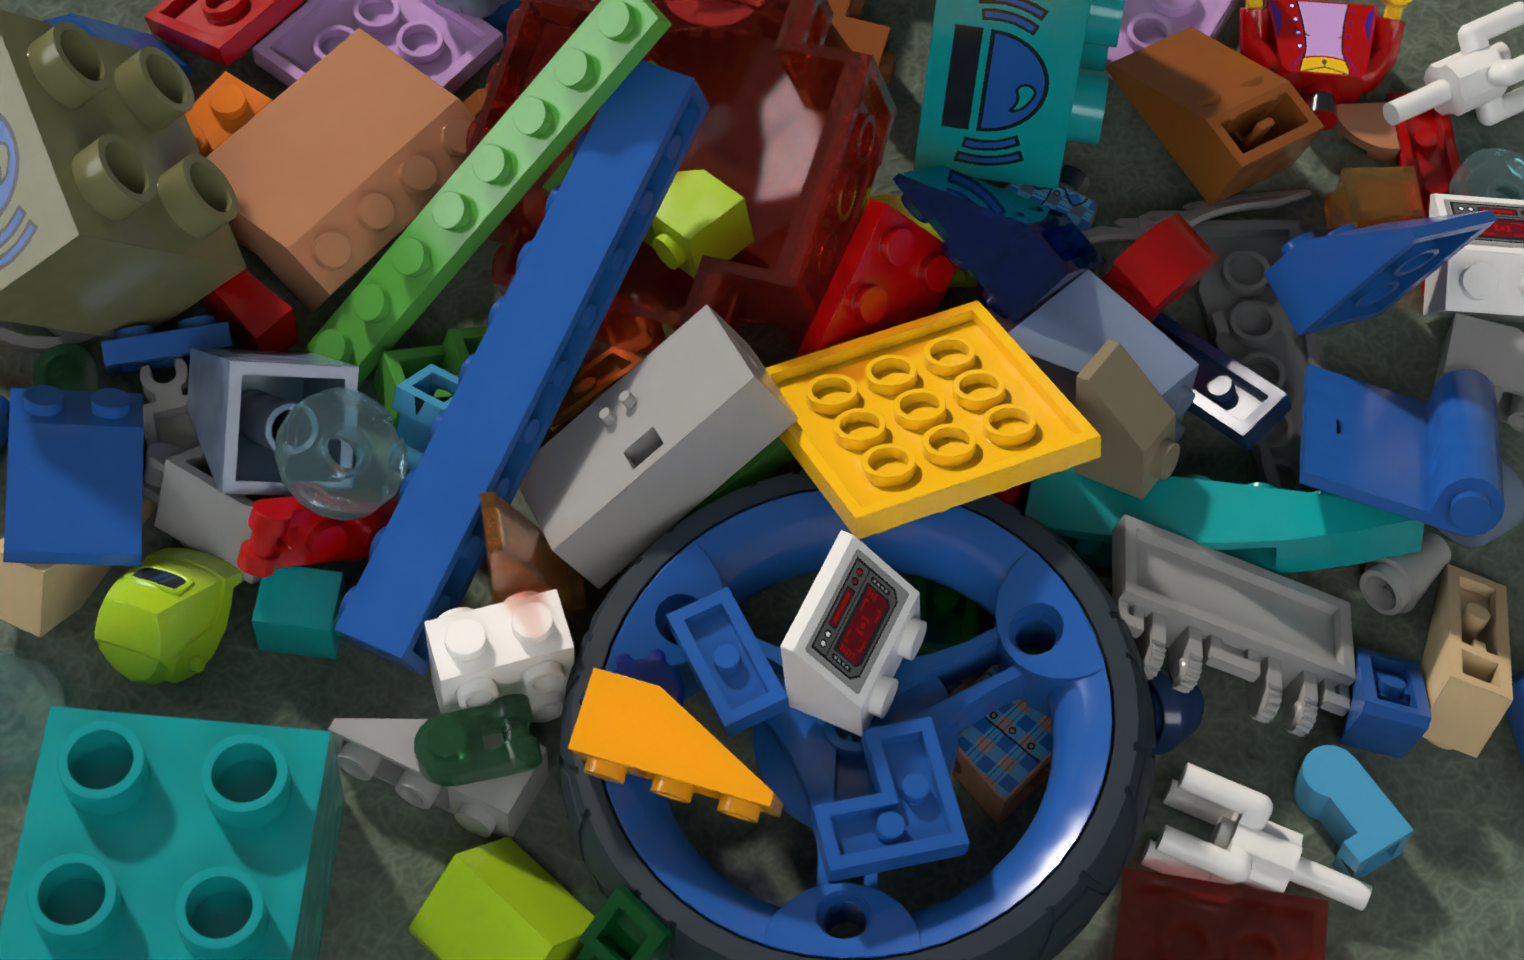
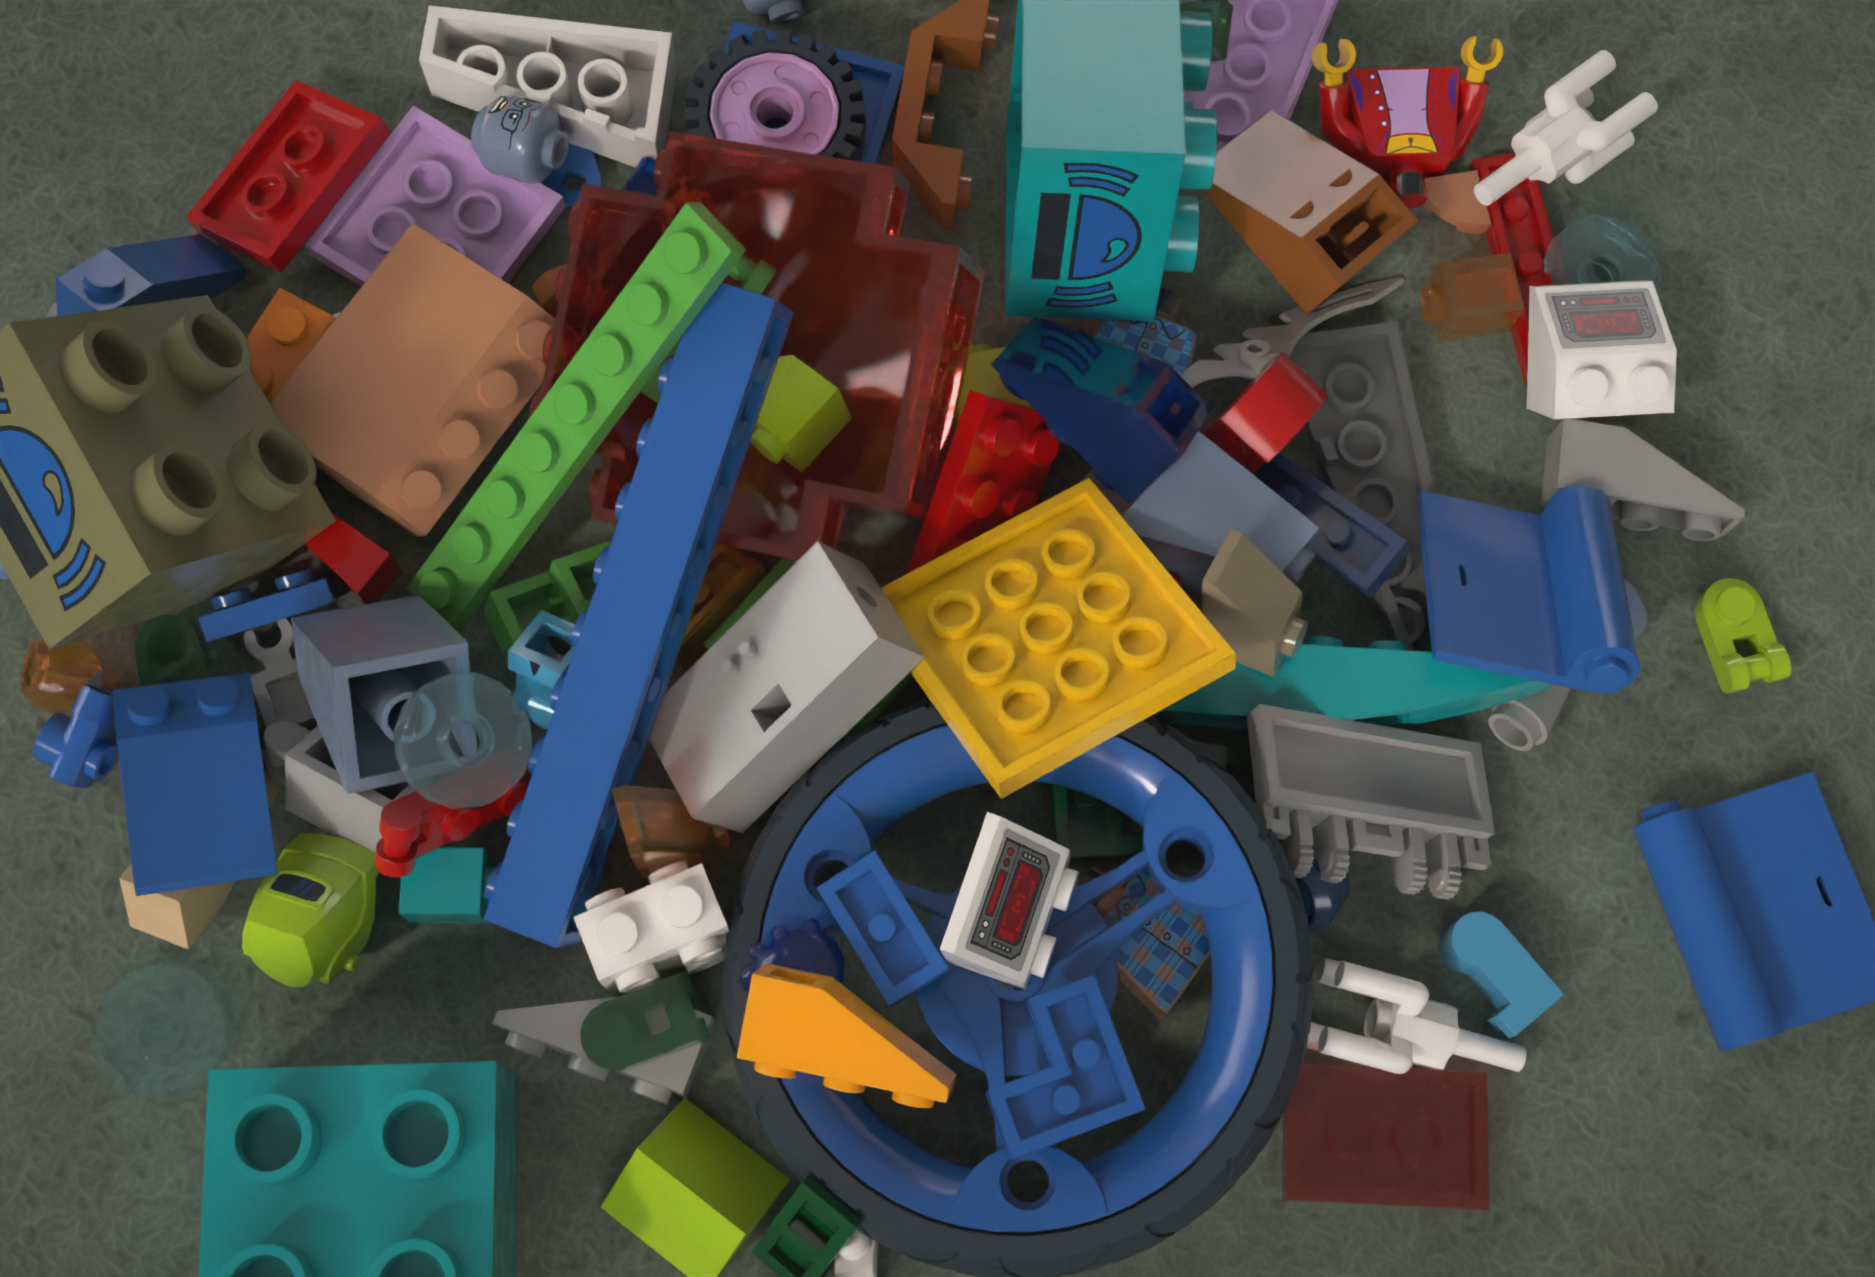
camera: 10 degrees left, 15 degrees up
(1365, 269) = (1473, 377): blue slope -> none
(1387, 705) = (1527, 849): blue slope -> none
(1467, 661) = (1599, 798): tan slope -> none

